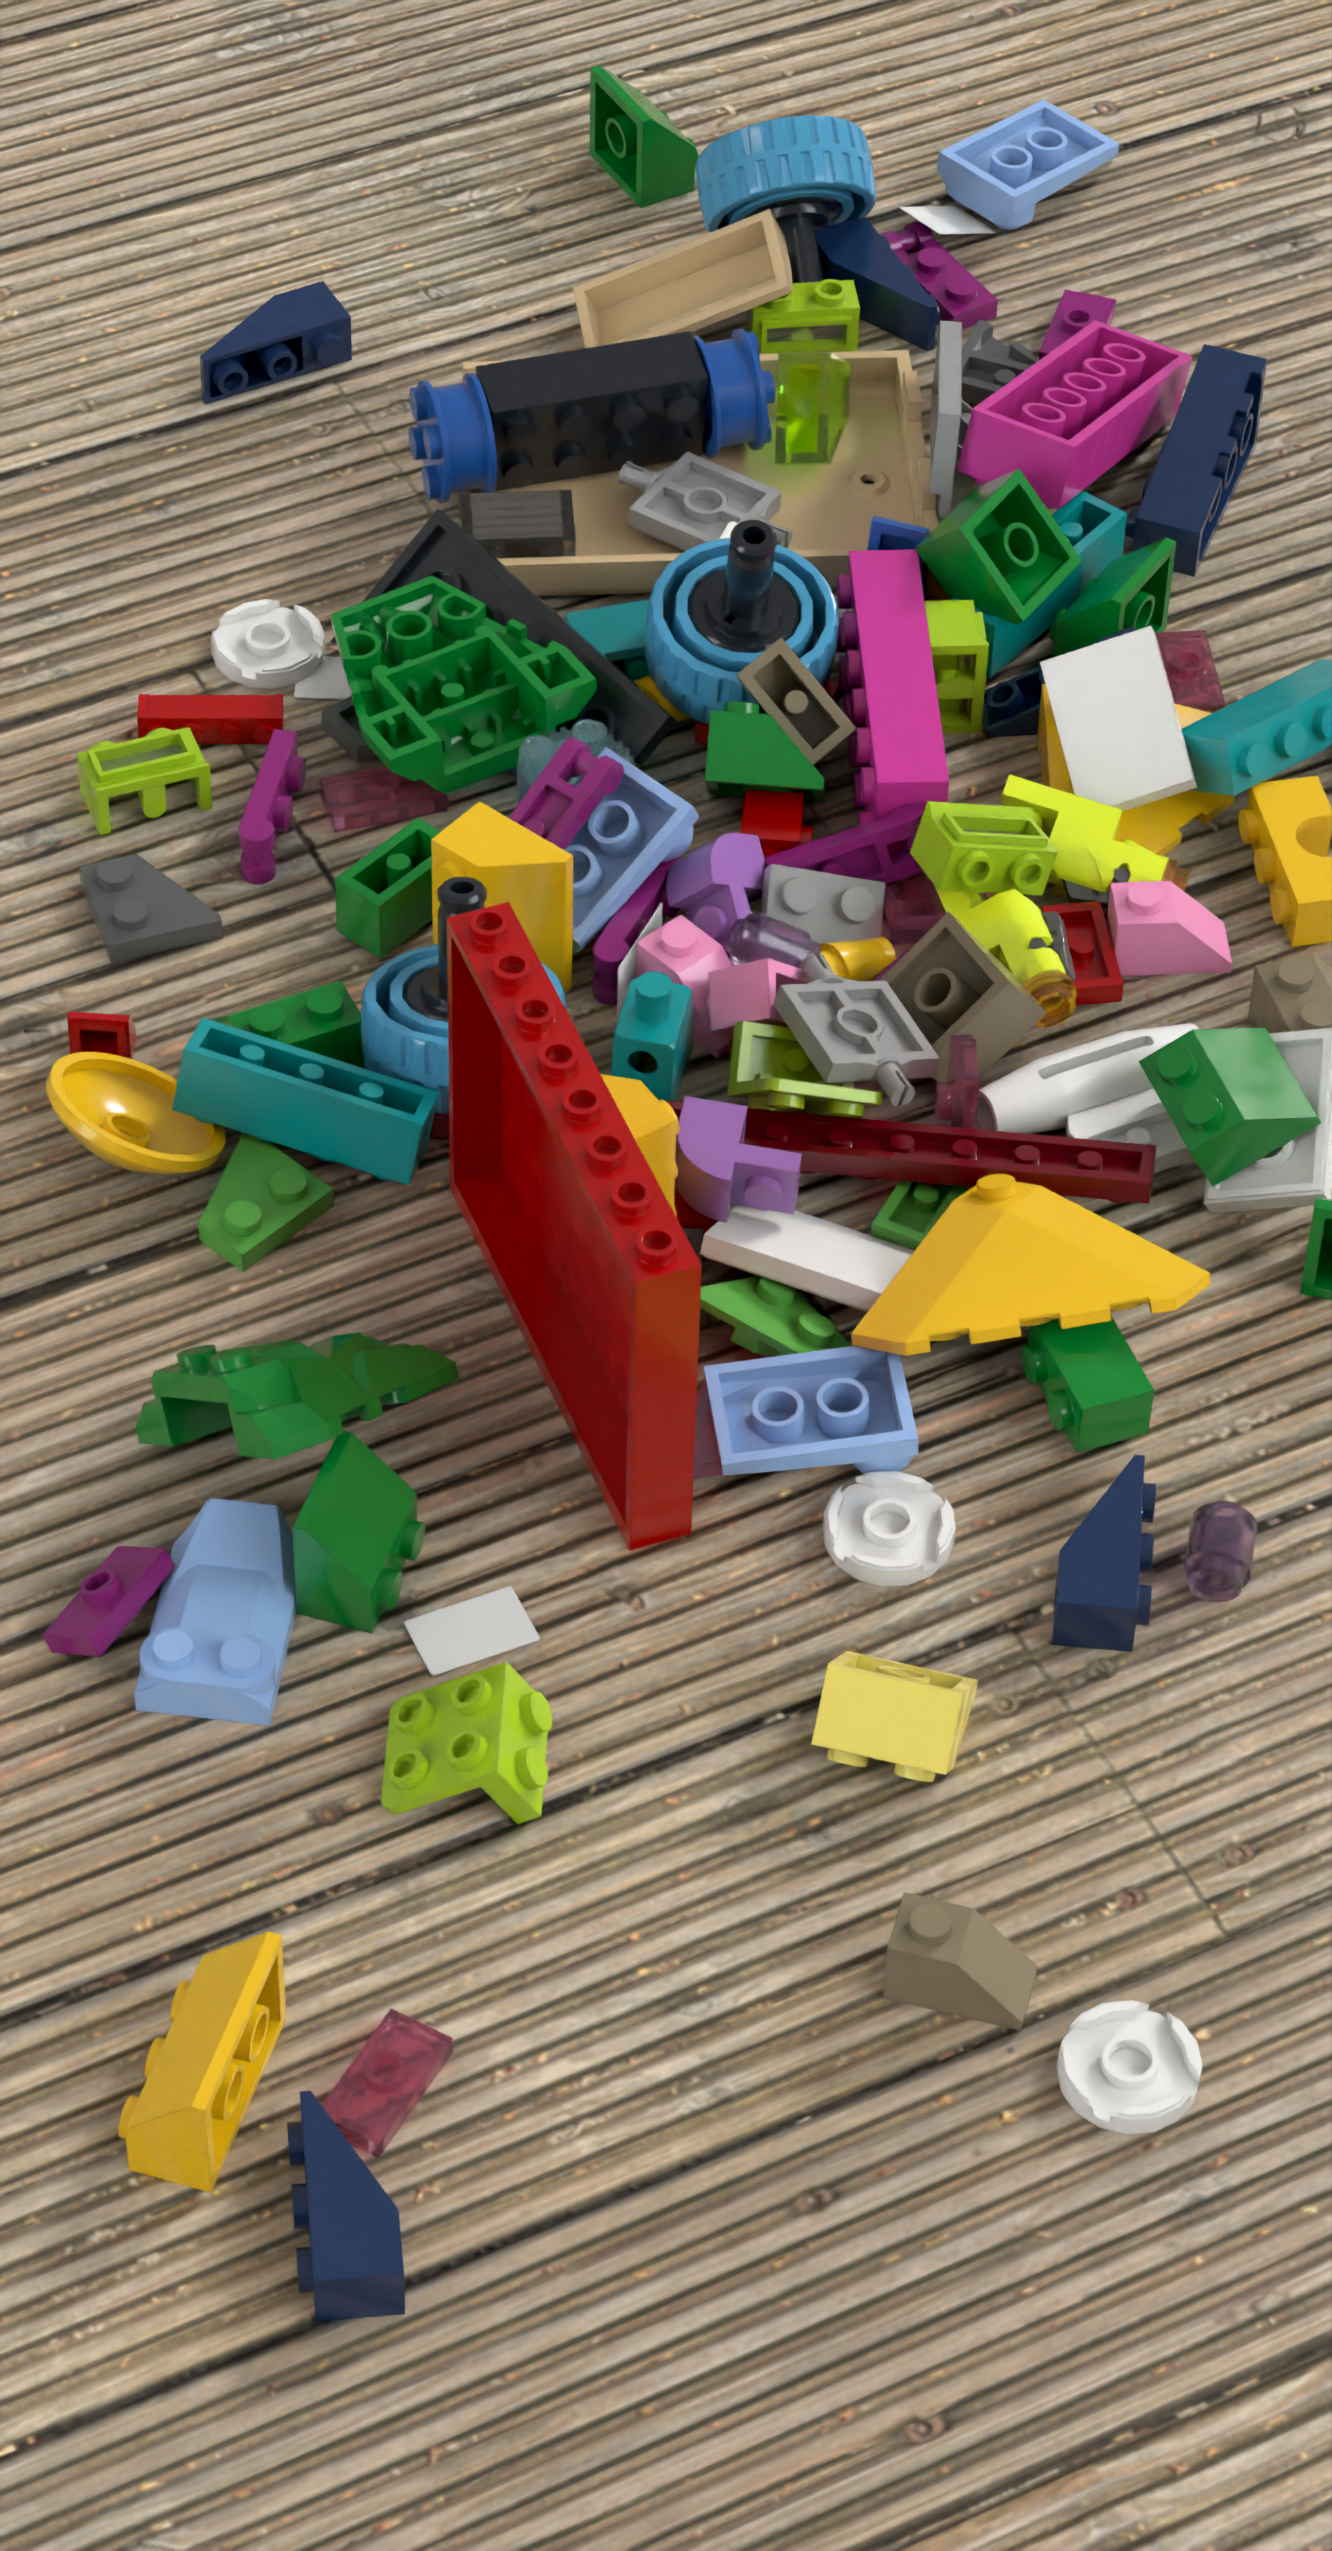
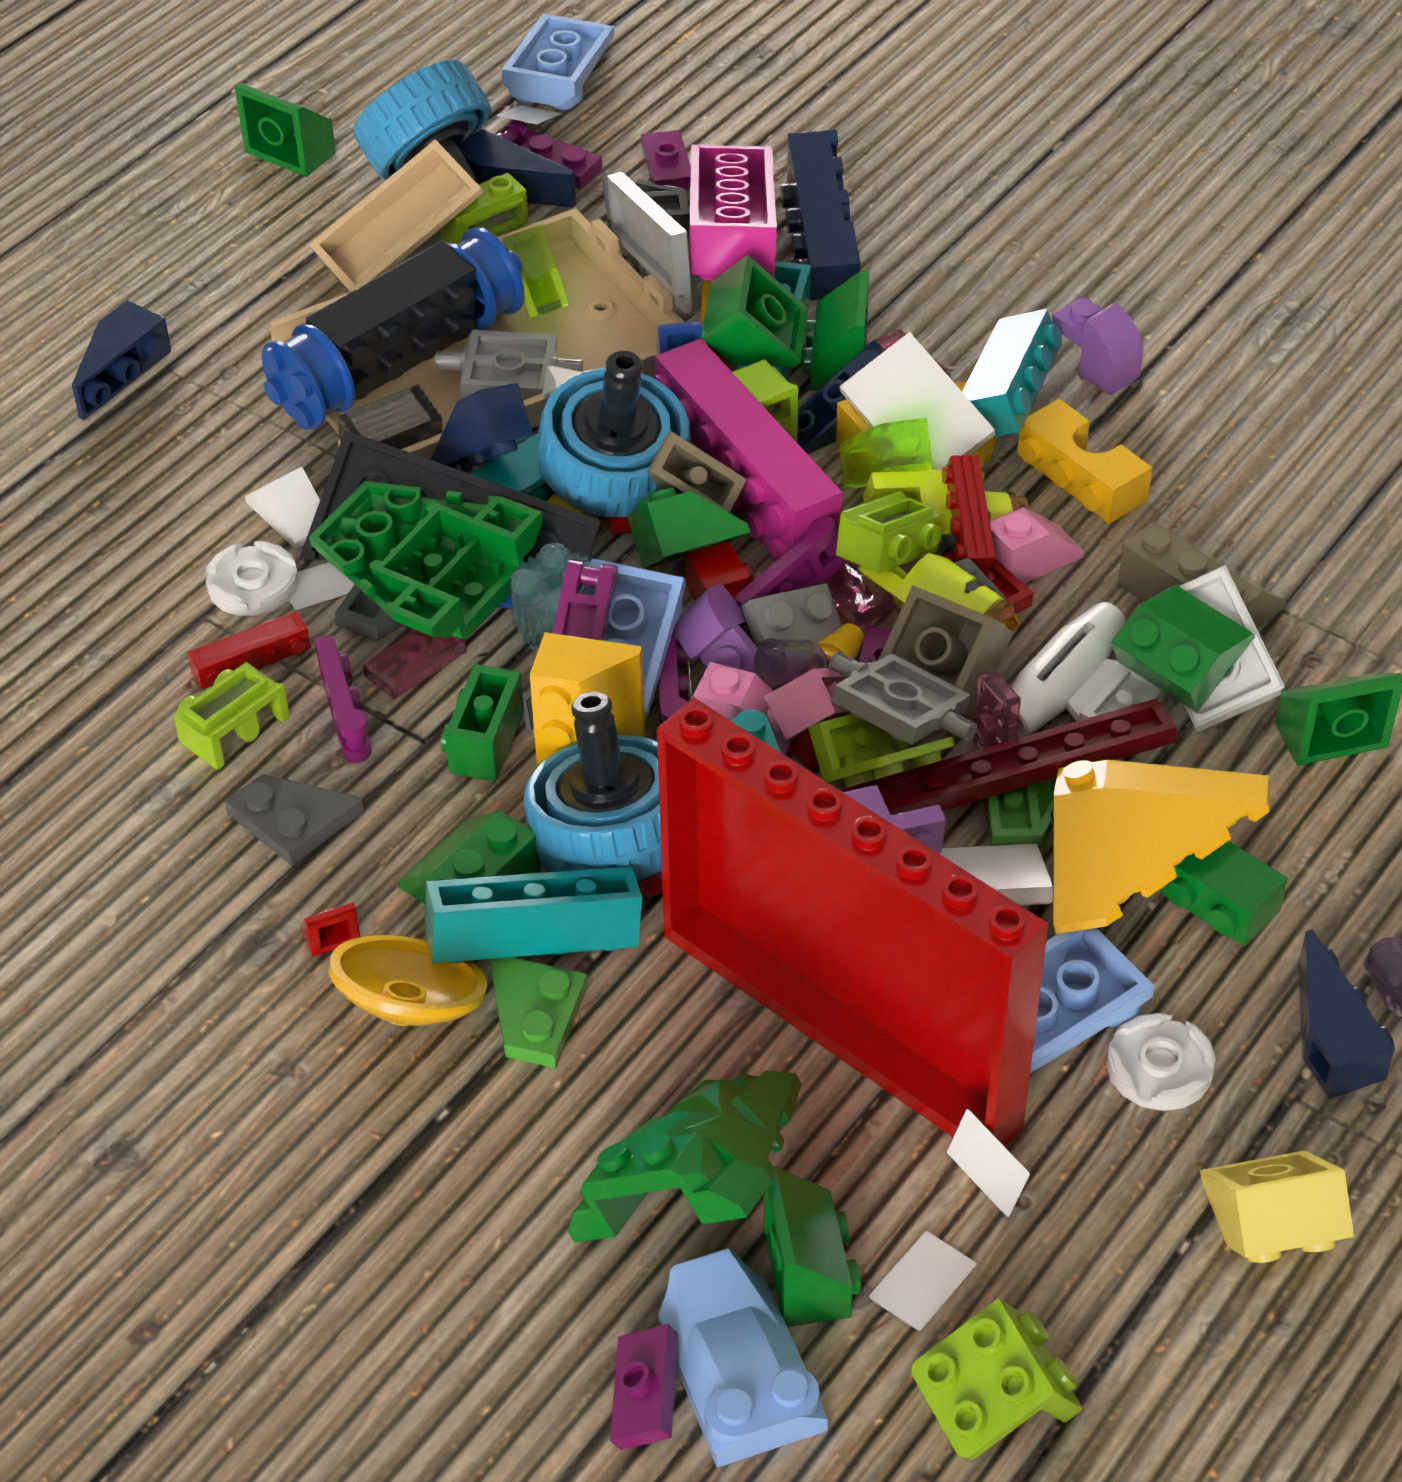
camera: 25 degrees left, 0 degrees up
(353, 569) = (287, 506): none -> white slope
(598, 563) = (483, 428): none -> dark blue slope
(613, 1542) = (988, 1163): none -> white sticker
(1054, 756) = (886, 448): none -> clear neon green slope
(1097, 861) = (968, 510): none -> red piece

